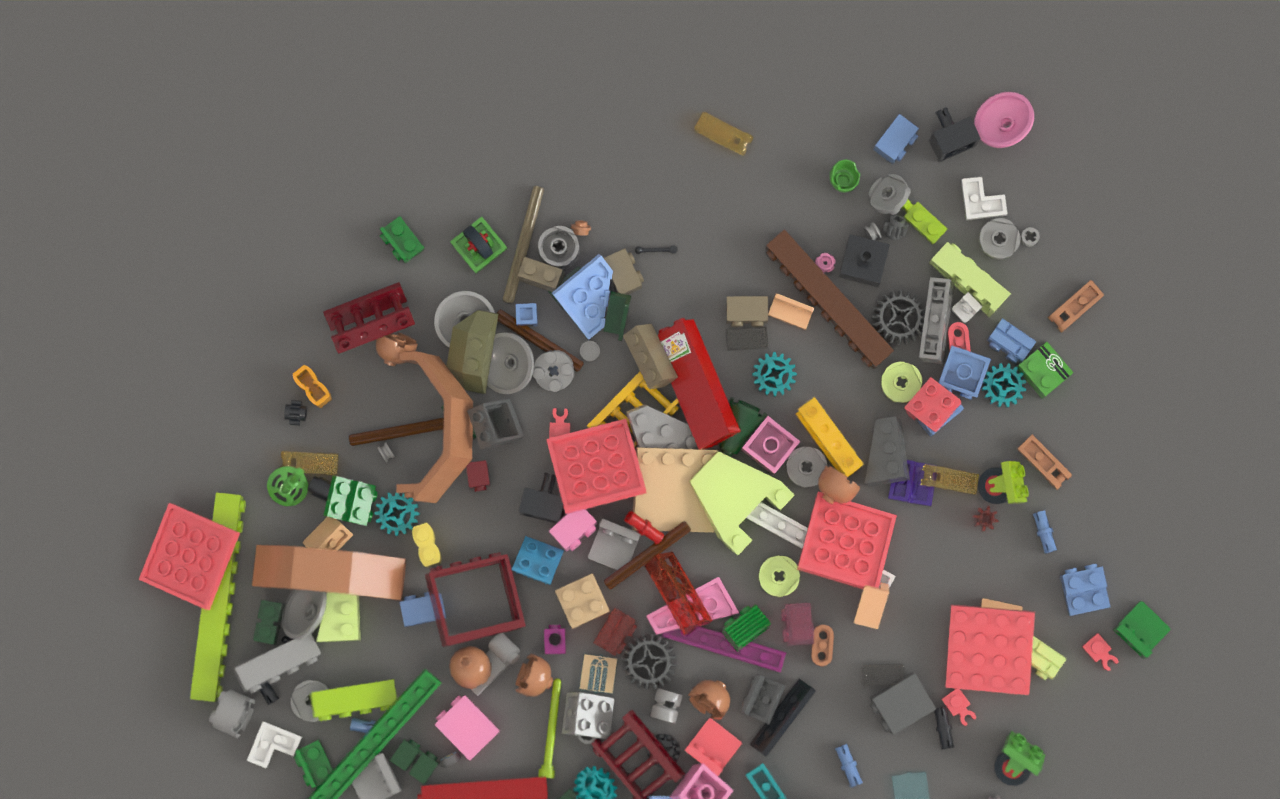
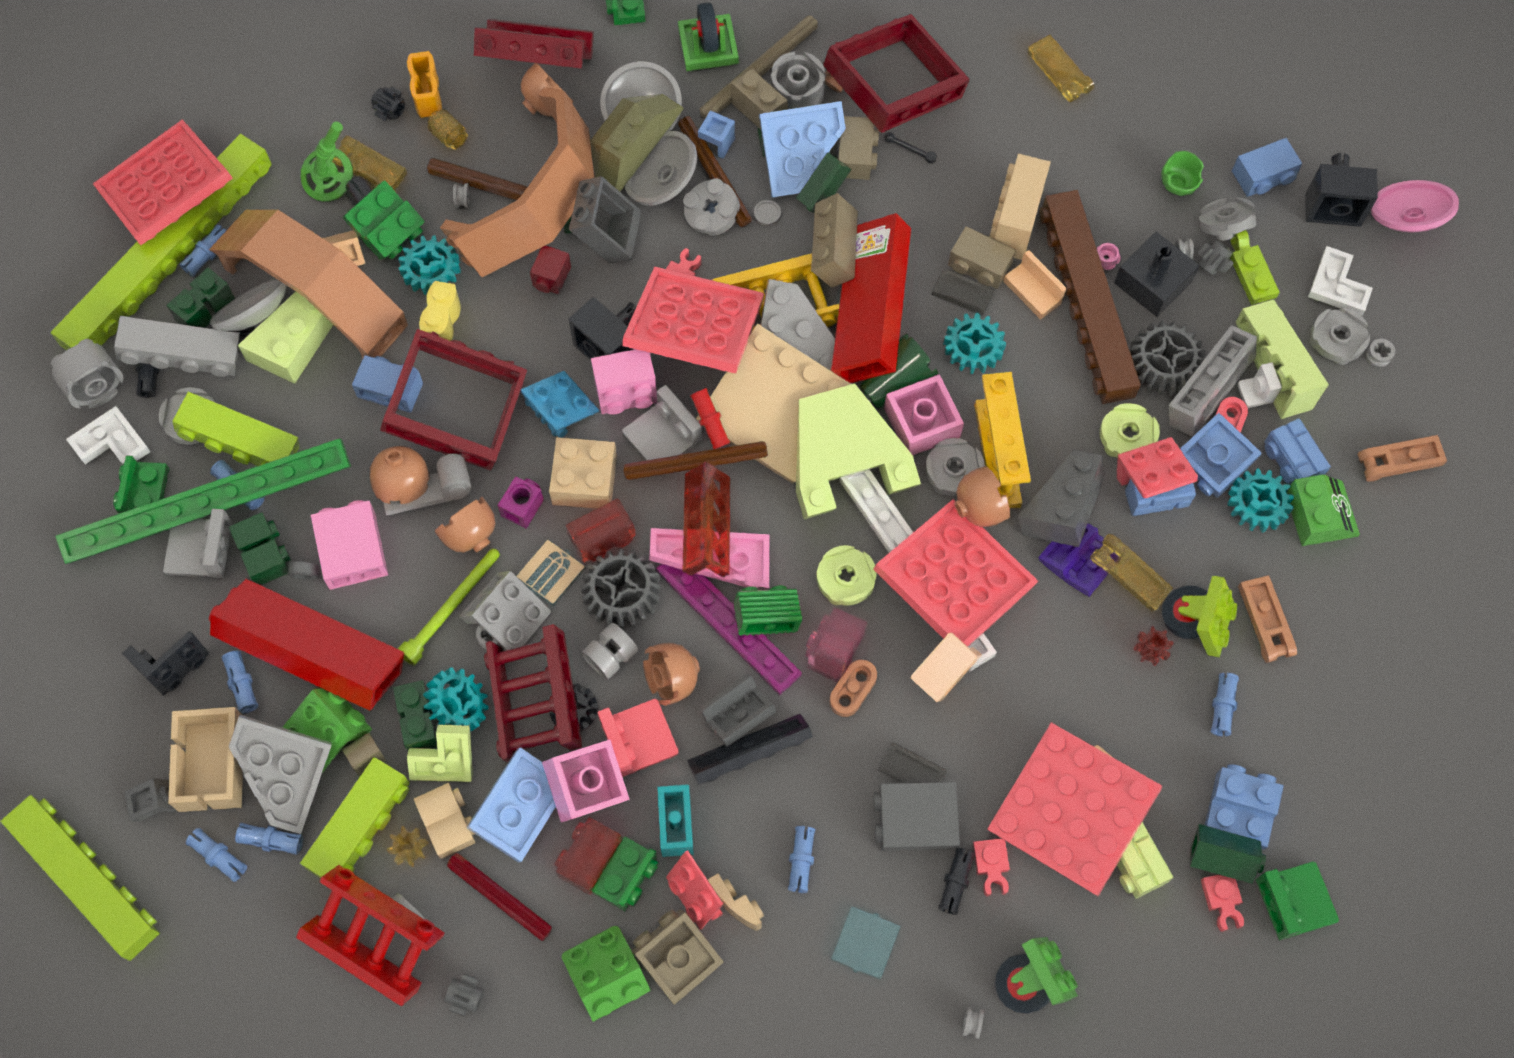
camera: 30 degrees right, 15 degrees down
(244, 583) = (201, 253): none -> medium blue pin
(346, 409) = (447, 129): none -> clear yellow brick
(633, 173) = (885, 117): none -> dark red window
(753, 262) = (1019, 203): none -> tan piece
(1089, 626) = (1226, 854): none -> dark green brick

